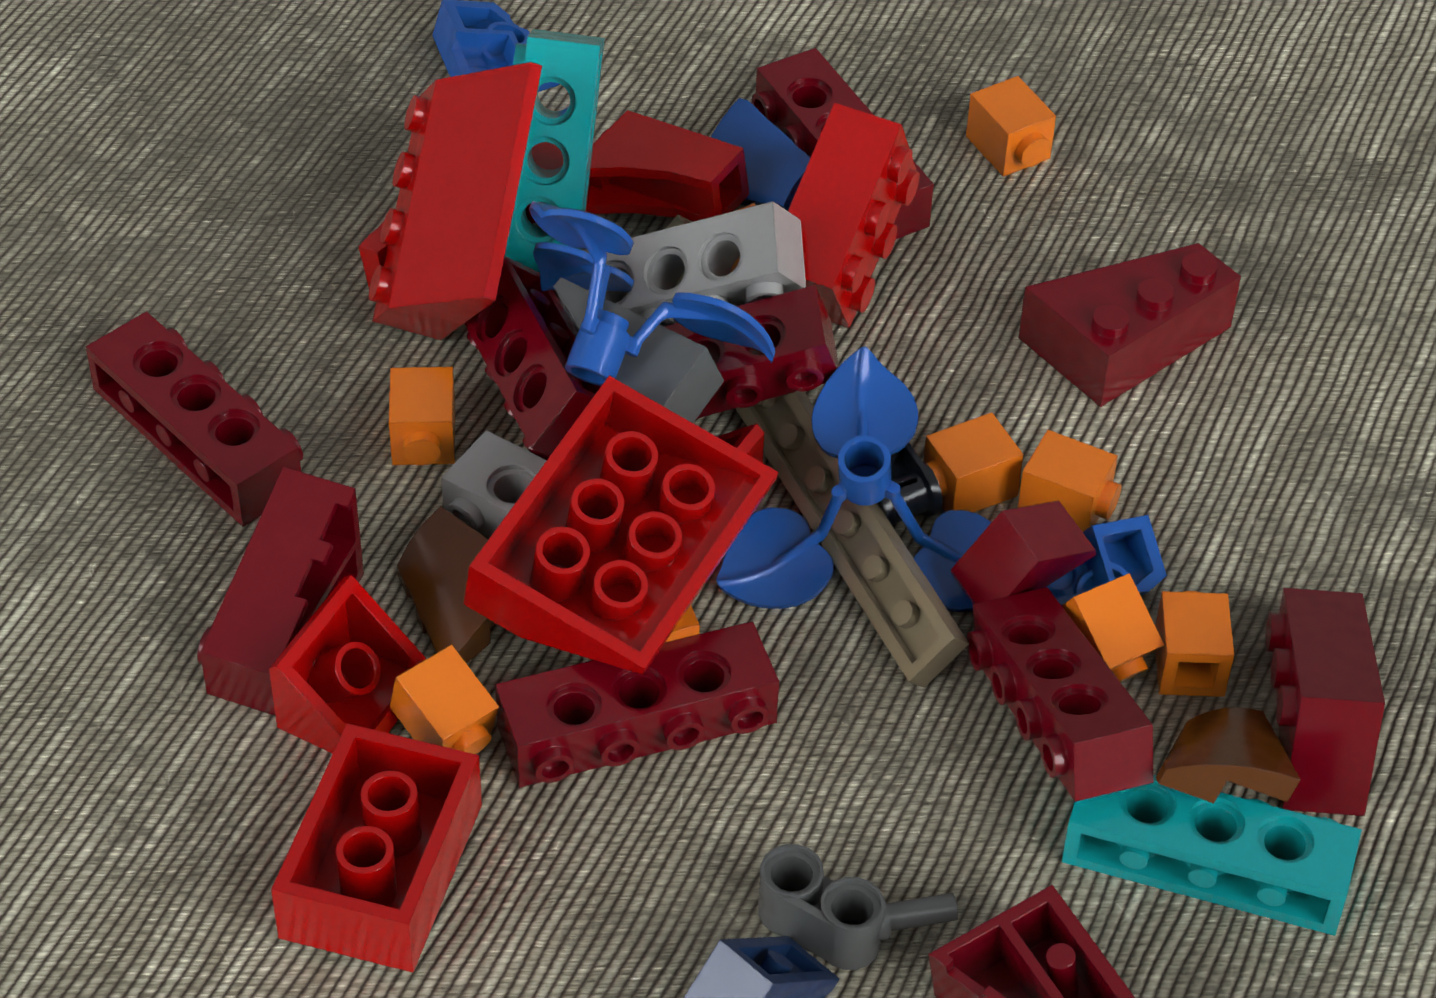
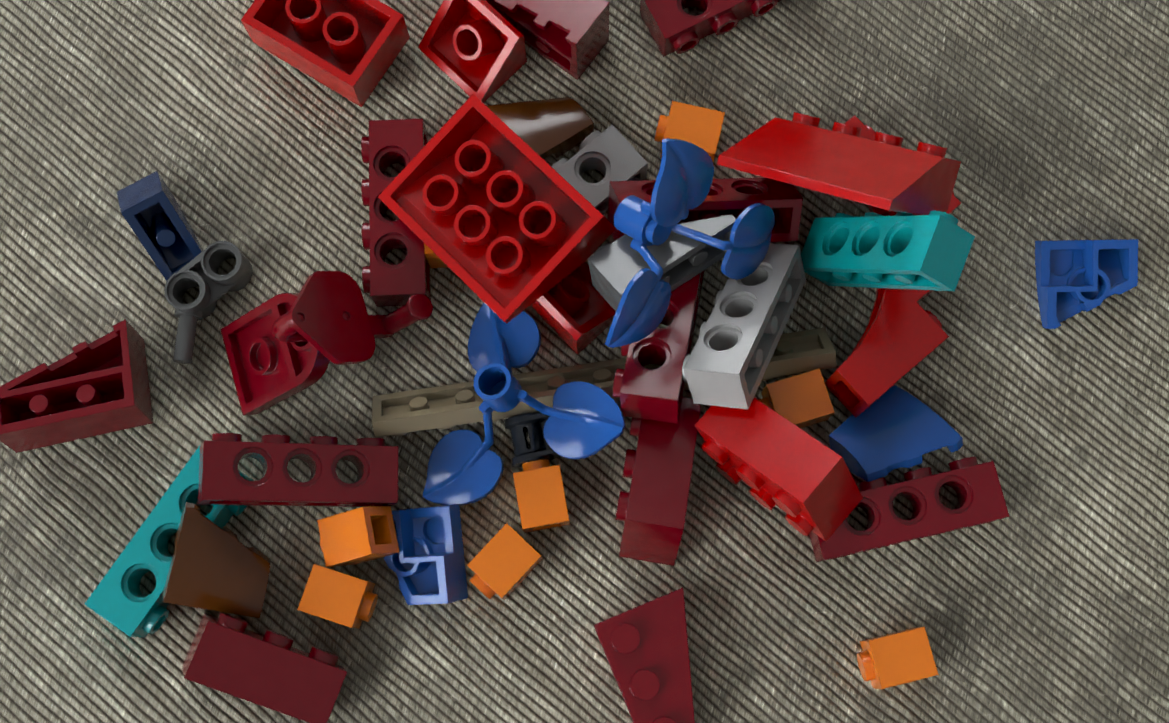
camera: 110 degrees right, 30 degrees up
(445, 703) = (426, 91): orange brick -> none
(883, 740) = (296, 335): none -> dark red plate
(925, 338) = (659, 486): none -> dark red wedge
(1022, 552) = (429, 499): dark red slope -> none

